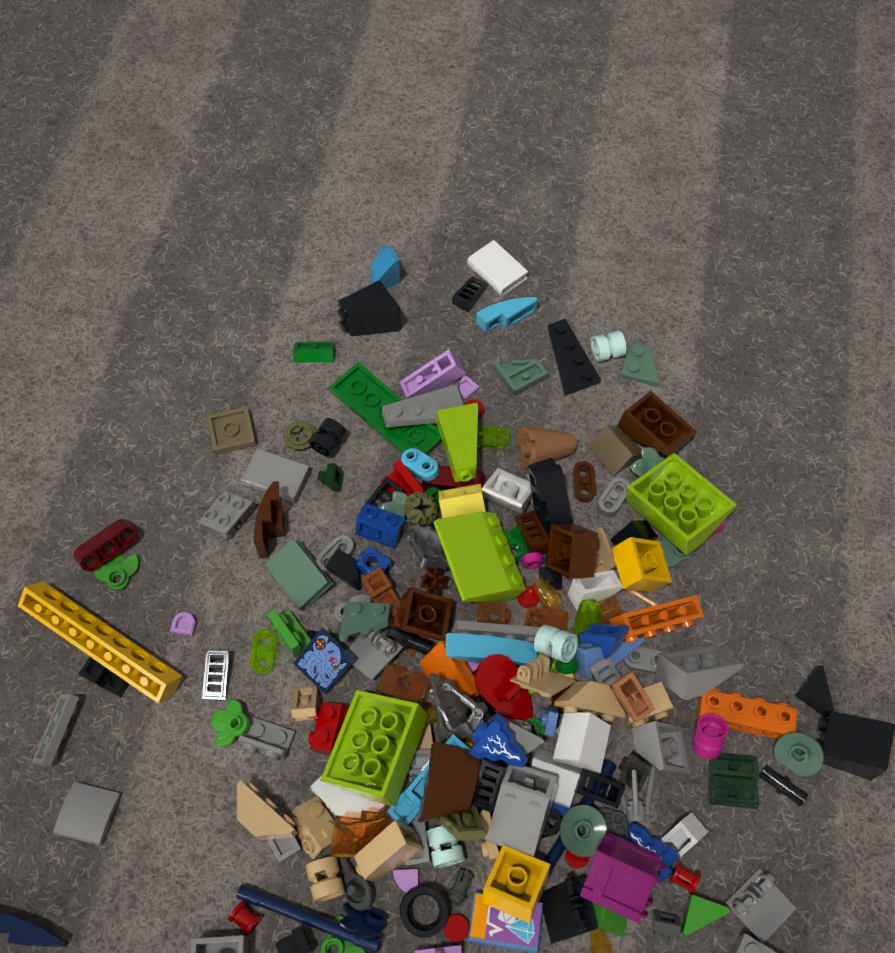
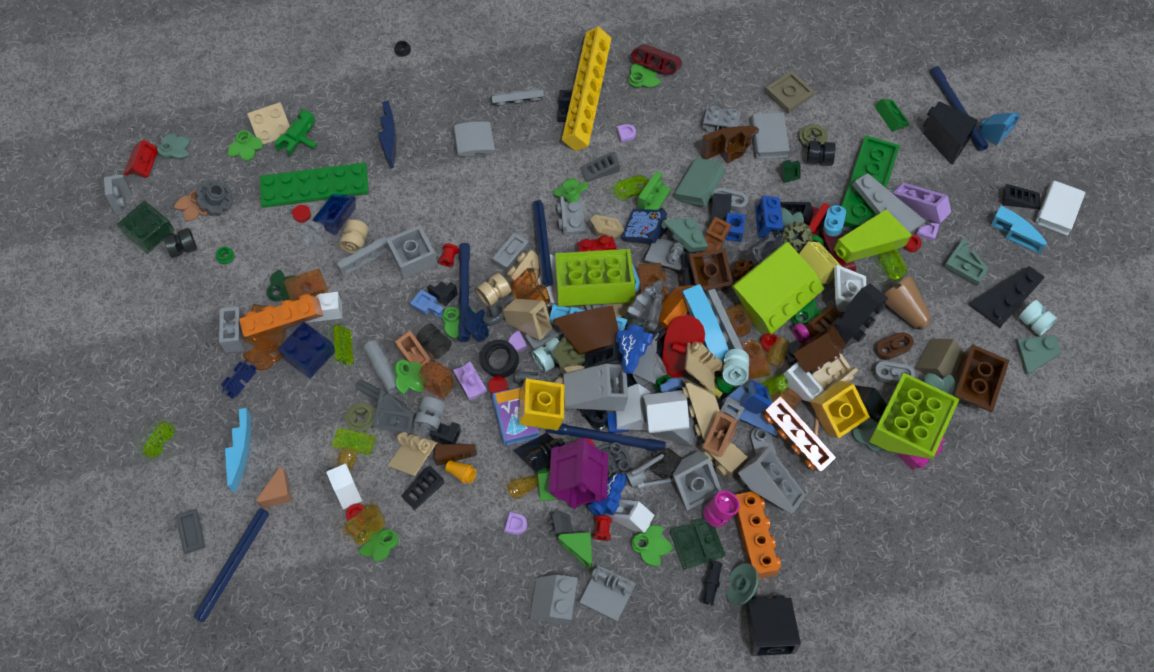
camera: 70 degrees right, 0 degrees up
(260, 815) = (515, 230): tan slope -> none
(291, 789) = (542, 242): none -> dark blue axle
(298, 289) = (941, 80): none -> dark blue piece
(593, 830) = (605, 429): sand green dish -> none
(615, 792) = (633, 448): black slope -> none
(722, 828) = (655, 545): none -> bright green plate
(816, 692) = (805, 584): black slope -> none

